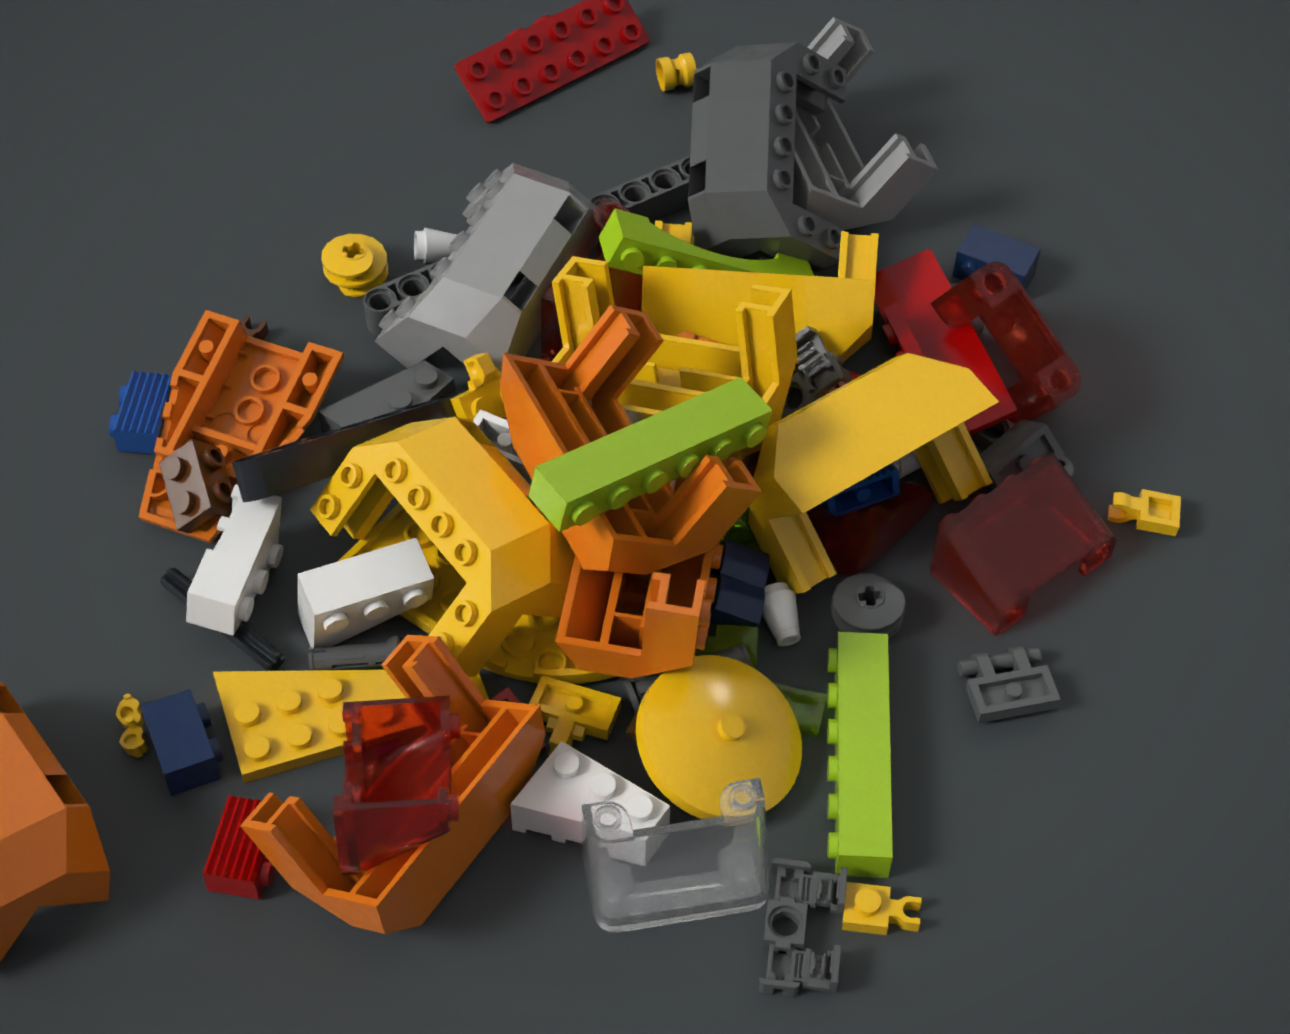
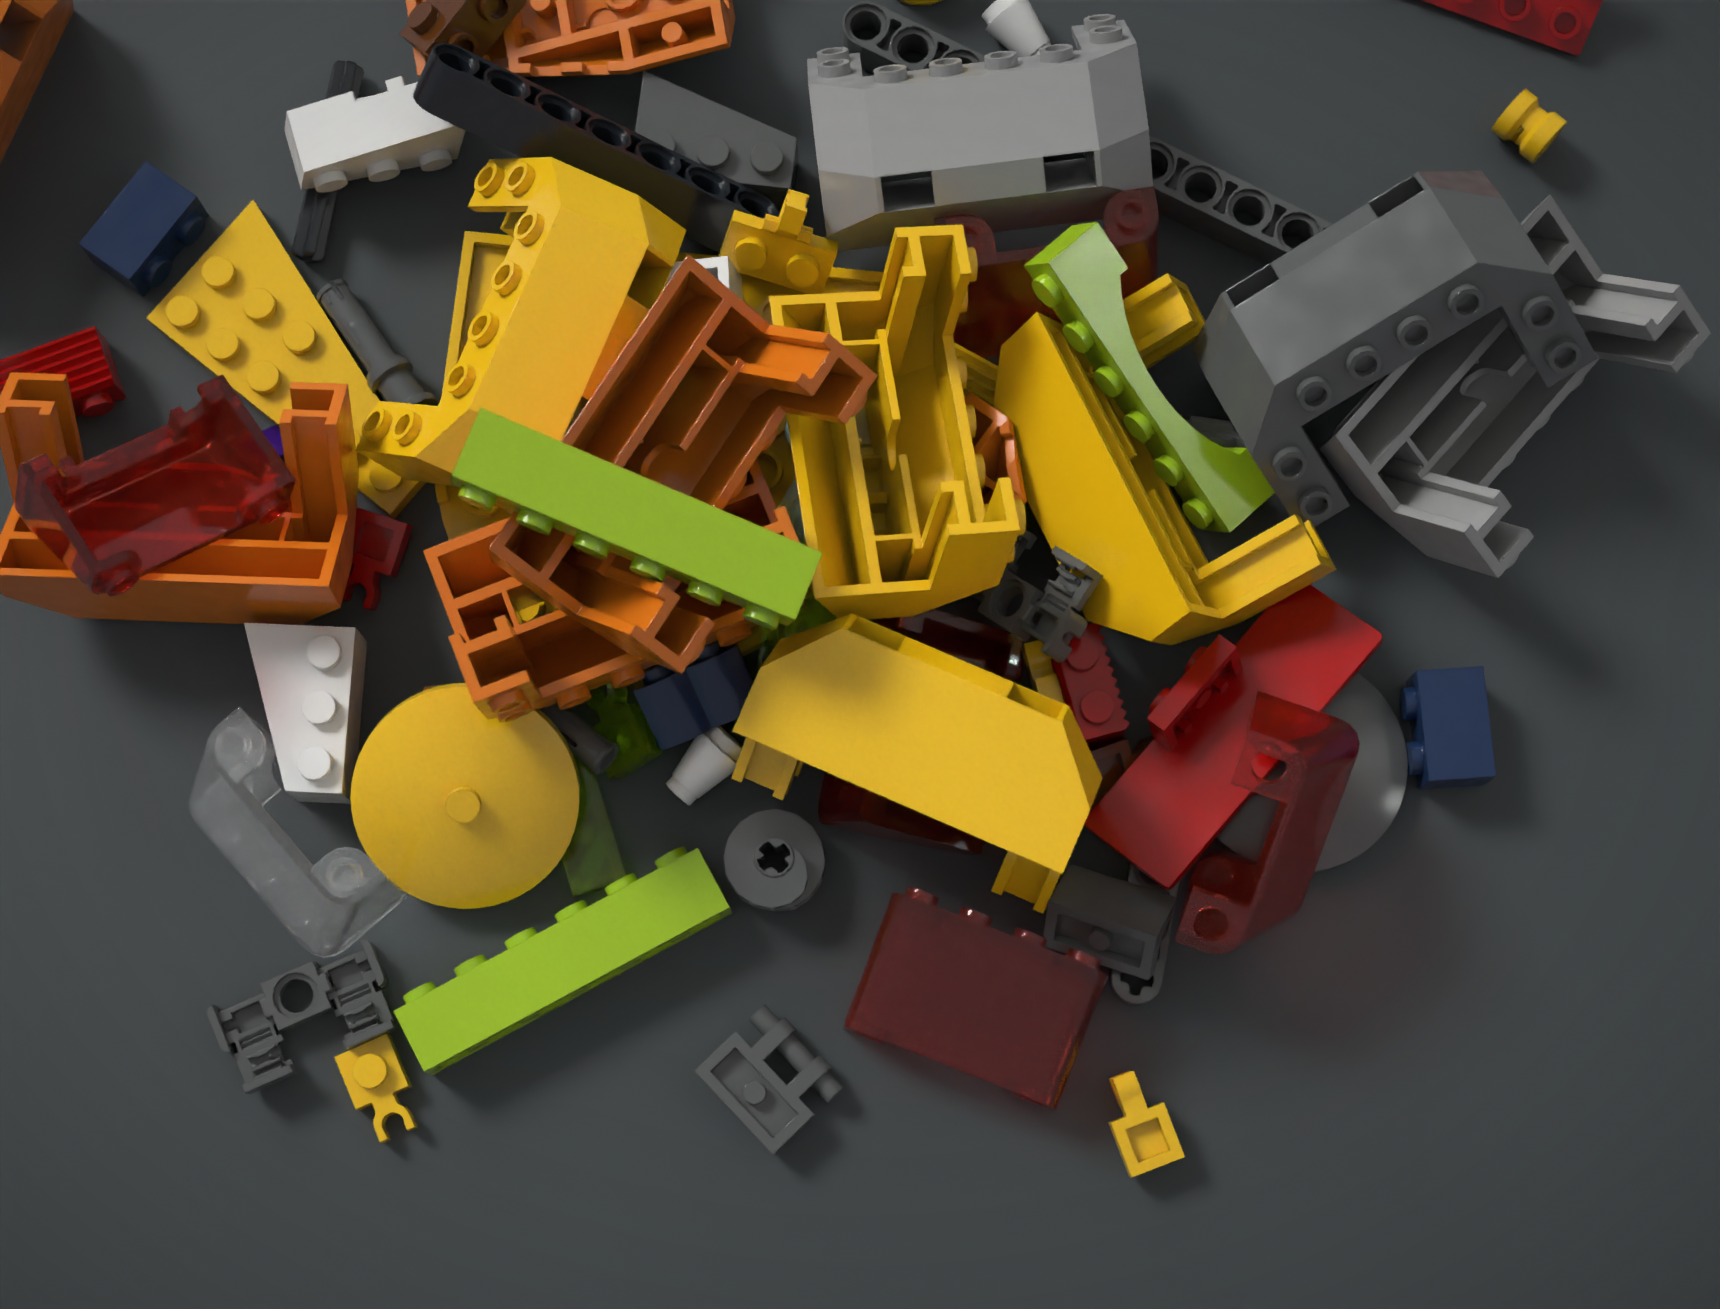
camera: 60 degrees right, 25 degrees up
(129, 716) = (156, 149): yellow piece -> none
(362, 592) = (410, 284): white wedge -> none
(574, 711) = (416, 616): yellow hinge -> none

